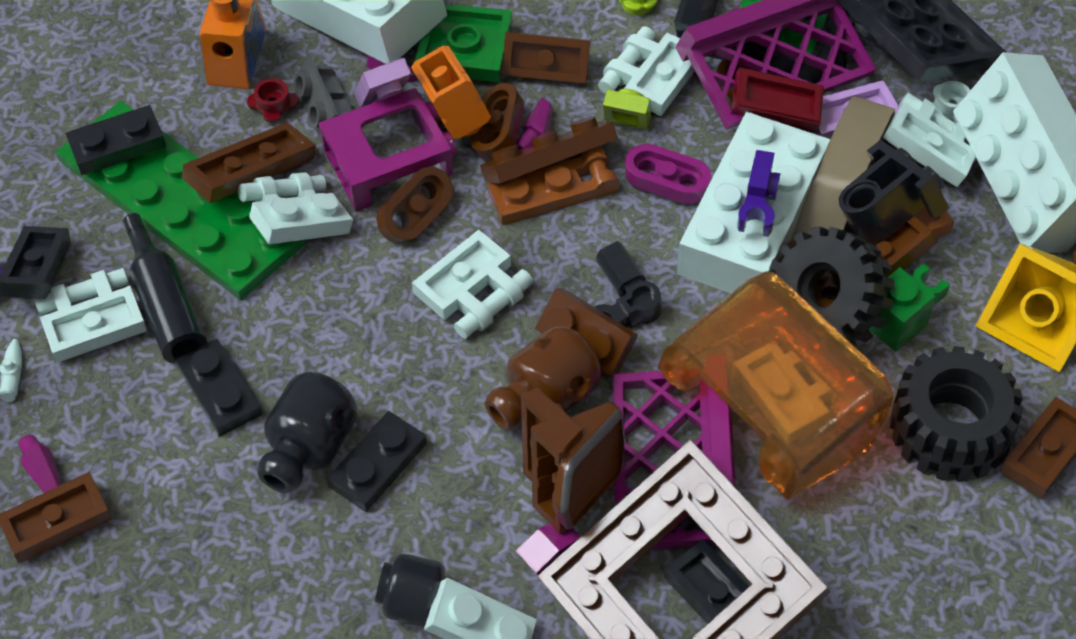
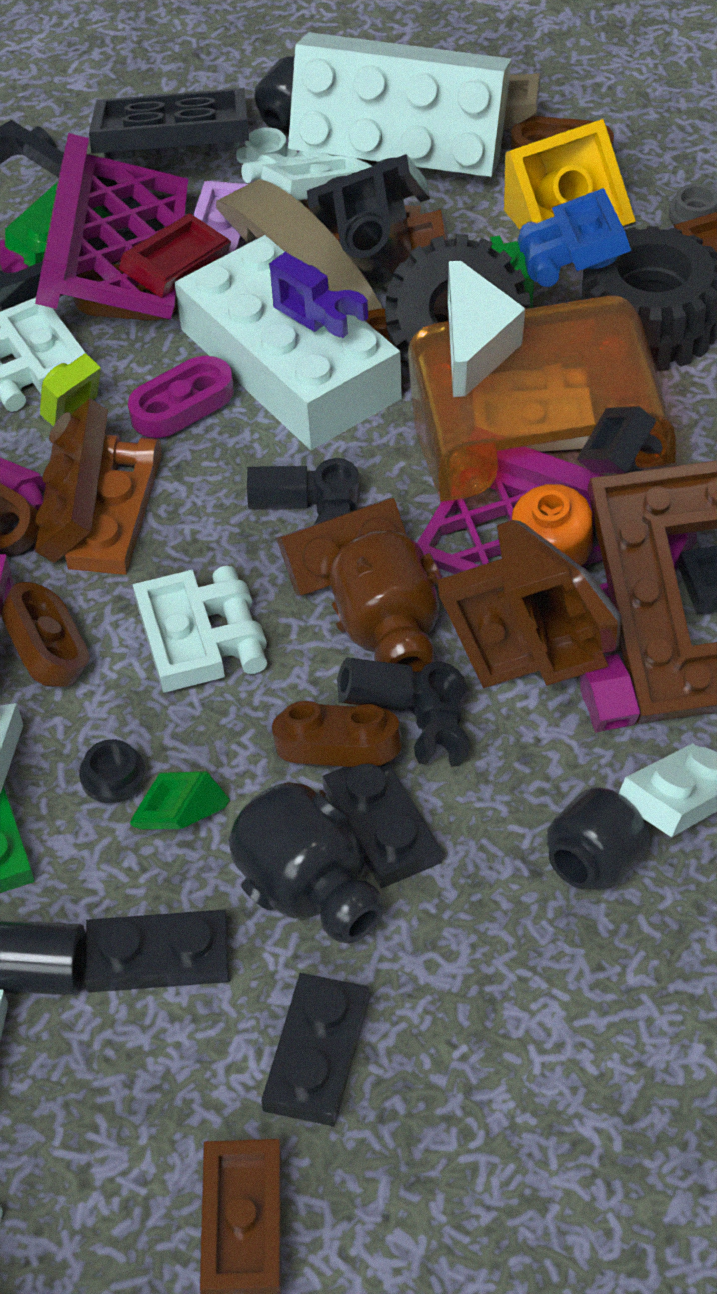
camera: 60 degrees left, 5 degrees down
(39, 463) = (141, 1211): magenta bar -> none
(189, 504) = (316, 1049): none -> black plate
(330, 344) = (179, 801): none -> green slope
(333, 296) = (112, 771): none -> black plate
(423, 403) = (336, 734): none -> reddish brown plate
(489, 440) = (429, 694): none -> black bar
(650, 439) = (559, 517): none -> orange head
(738, 441) = (618, 440): none -> black tile
(766, 301) = (482, 327): none -> light aqua slope
(950, 329) = (580, 233): none -> blue plate

